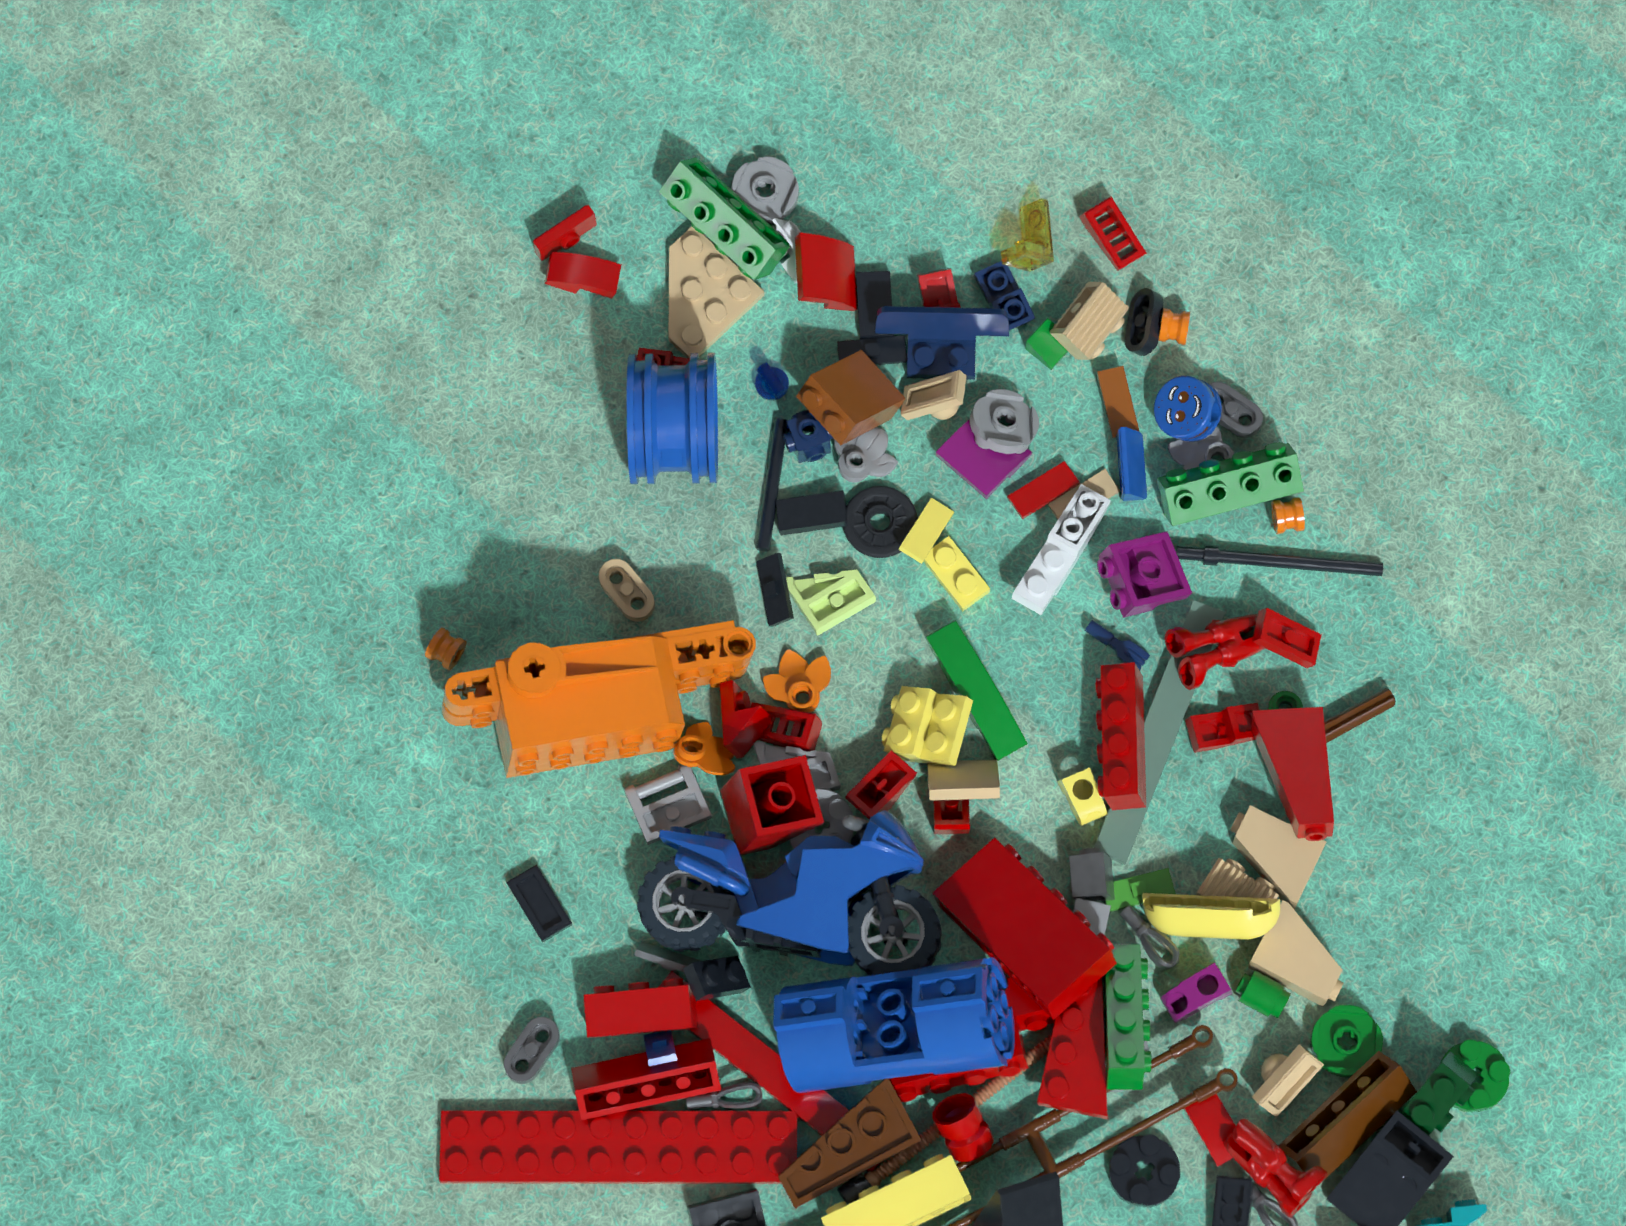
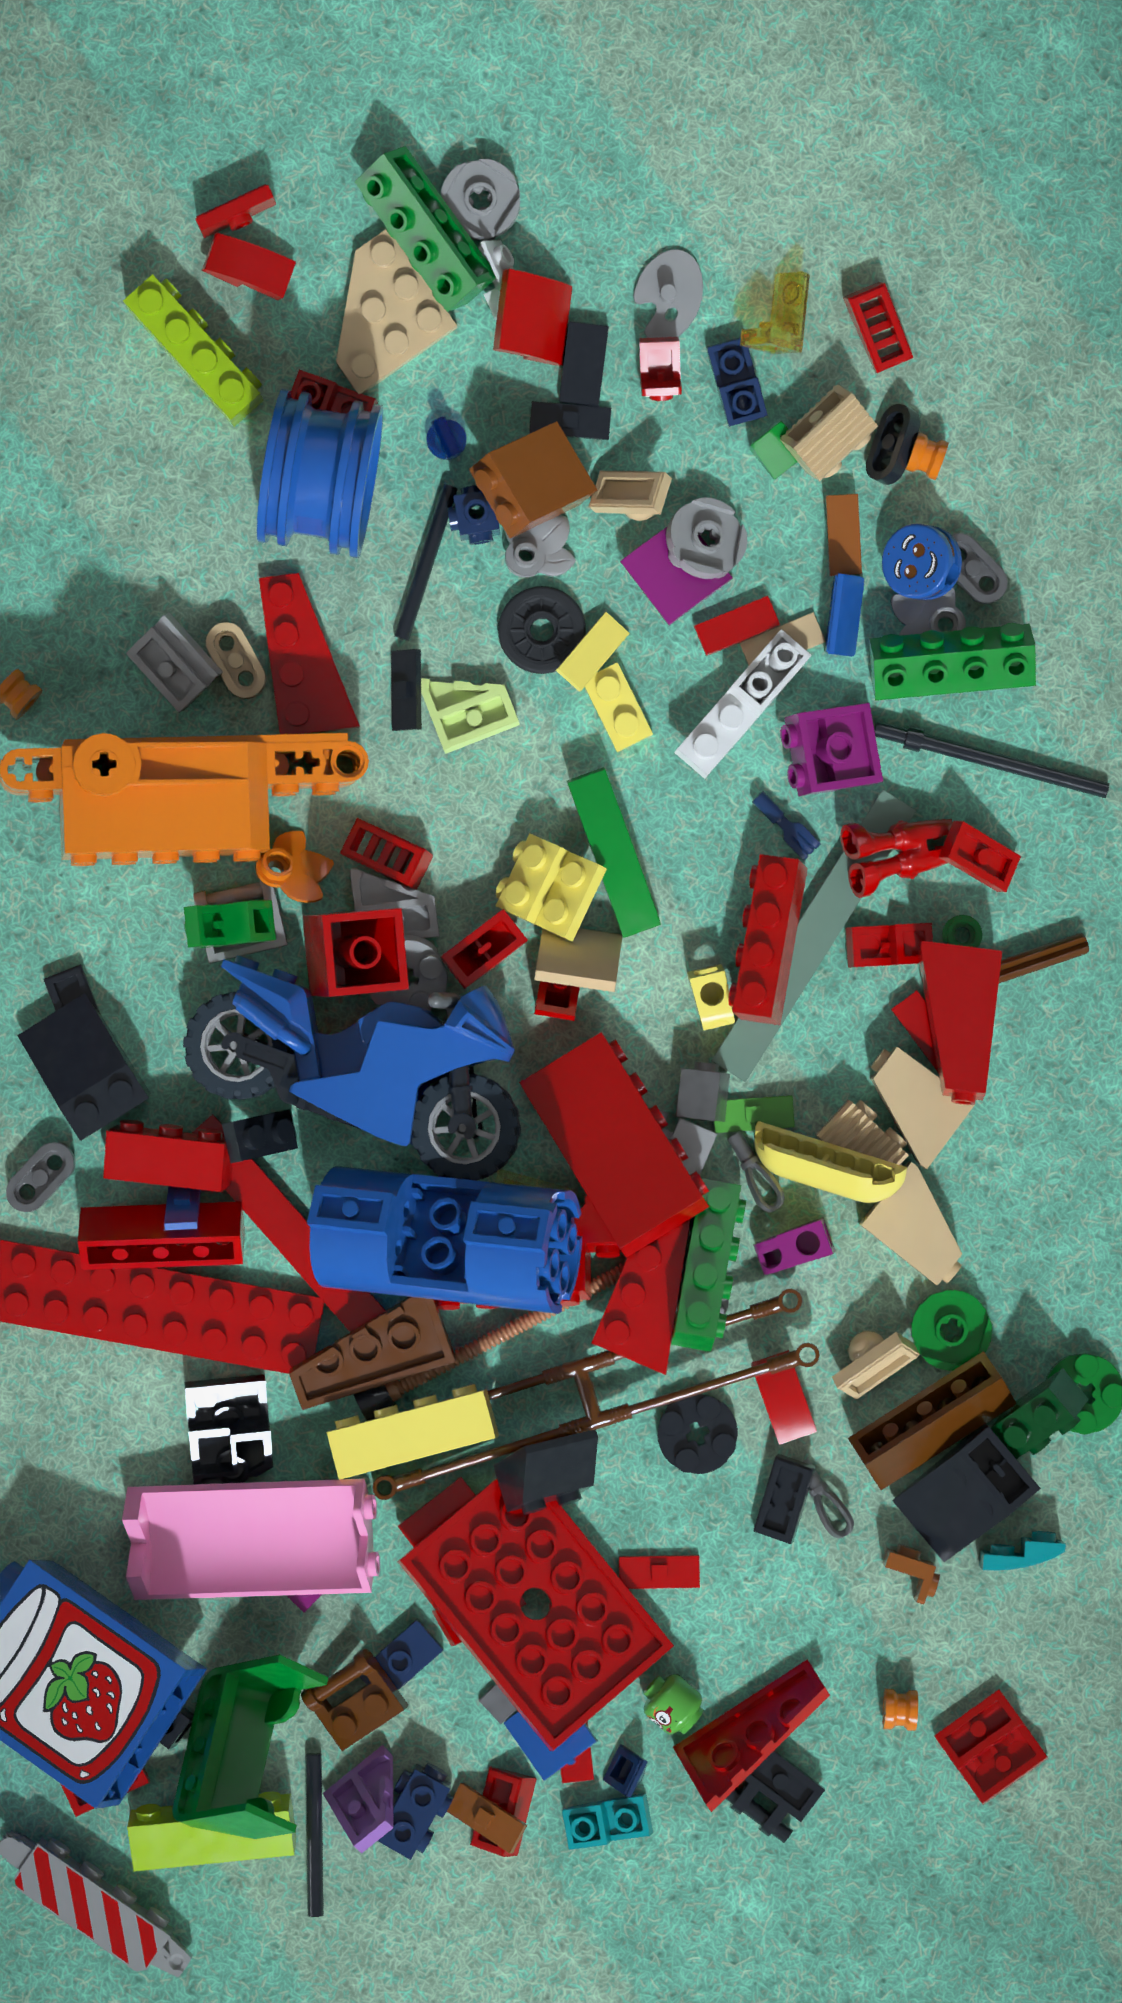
camera: 10 degrees right, 15 degrees up
(548, 346) = (193, 350): none -> lime brick
(554, 948) = (83, 1066): none -> black slope
(574, 599) = (174, 662): none -> light grey plate
(660, 802) = (229, 924): none -> green brick
(667, 958) = (223, 1108): flat silver piece -> none
(679, 577) = (304, 675): none -> red wing
(714, 1098) = (264, 1280): flat silver piece -> none
(740, 721) = (335, 847): red slope -> none
(798, 677) = (412, 798): orange plate -> none
(811, 512) = (464, 606): black tile -> none
(935, 229) = (670, 282): none -> light grey piece
(941, 337) = (651, 425): dark blue plate -> none
(963, 1127) = (503, 1356): red wheel -> none
(1261, 786) = (914, 1017): none -> red piece
(1262, 994) = (868, 1260): green brick -> none
(1269, 1167) = (834, 1462): red piece -> none
(1288, 515) = (1011, 709): orange wheel -> none

